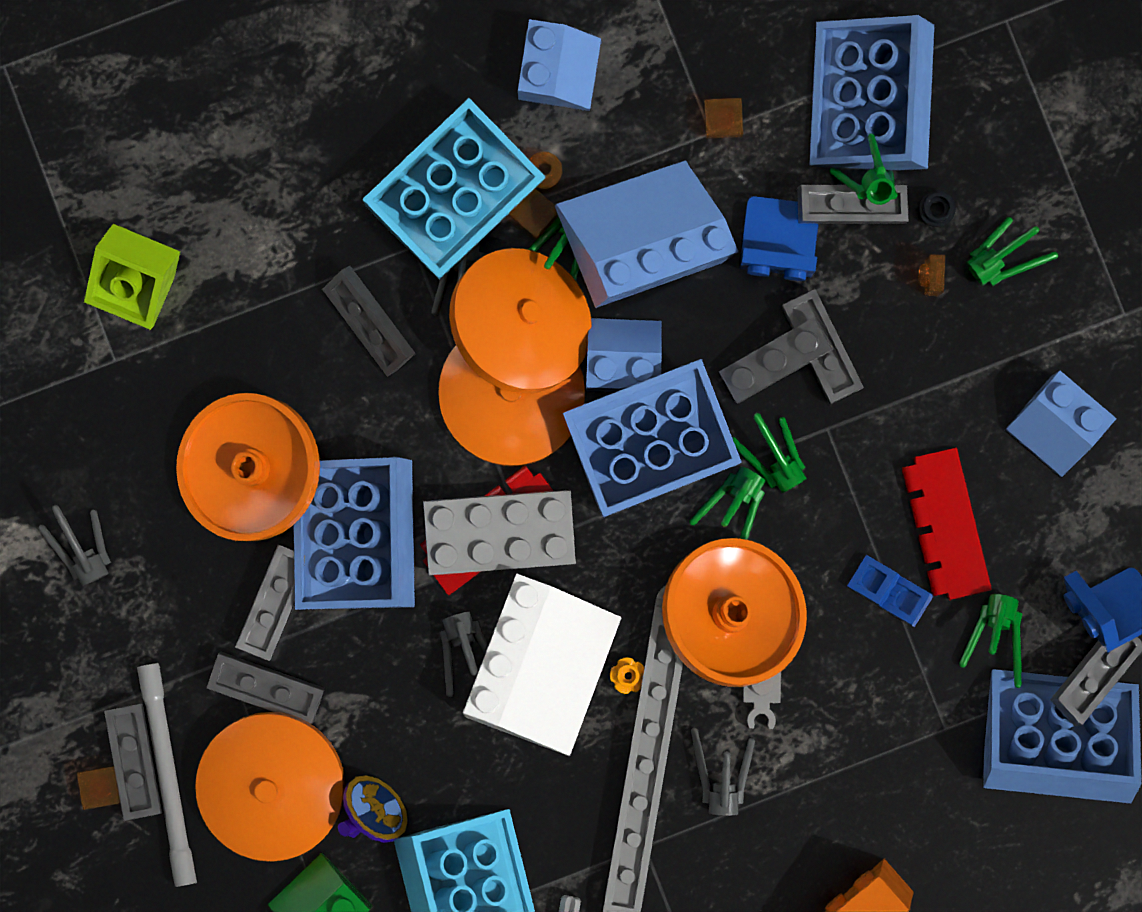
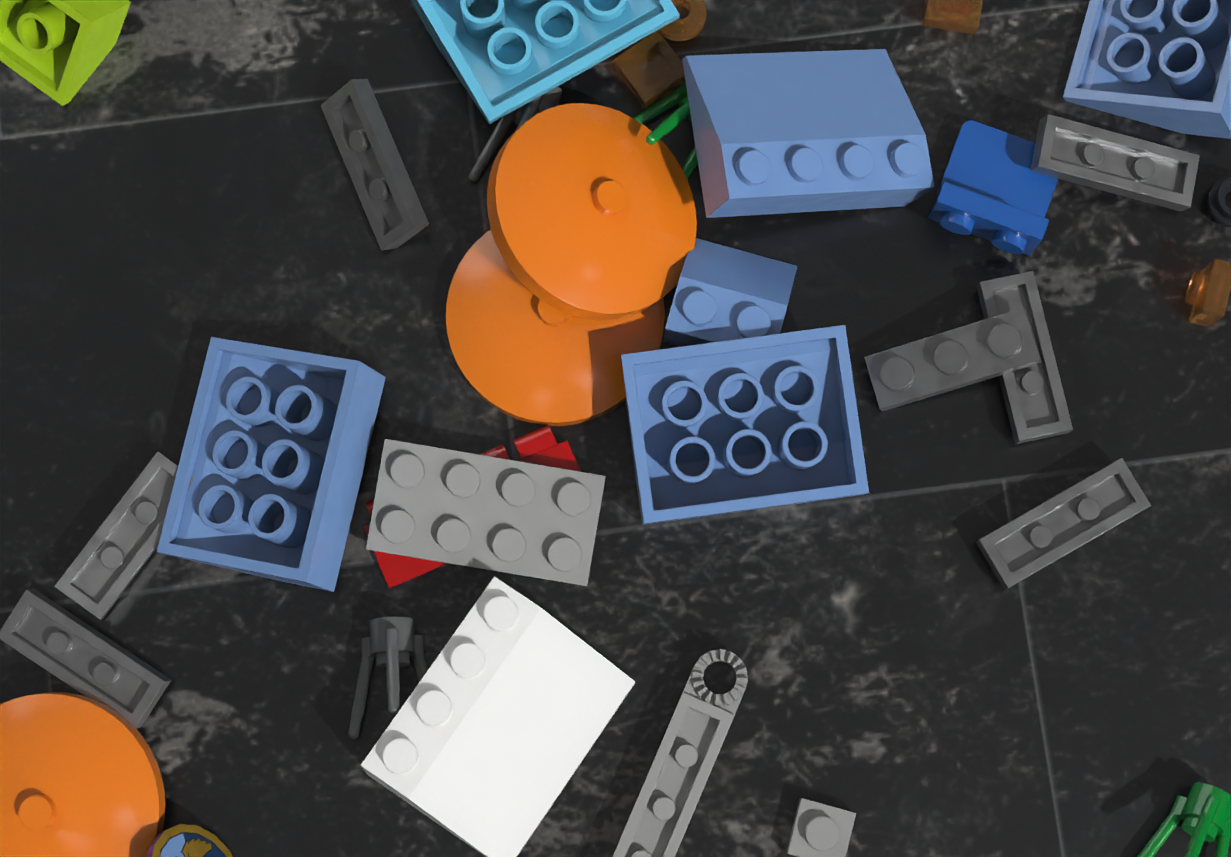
camera: 15 degrees right, 5 degrees down
(248, 467) = (143, 328): orange dish -> none
(618, 672) = (609, 765): light orange plate -> none
(734, 612) = (805, 715): orange dish -> none
(744, 487) = (862, 535): green plant -> none
(787, 470) = (933, 523): green plant -> none
(871, 449) = (1063, 523): none -> flat silver plate
(877, 183) = (1160, 133): green plant -> none
(890, 591) = (1045, 740): blue slope -> none
(952, 524) = (1158, 673): red windscreen -> none

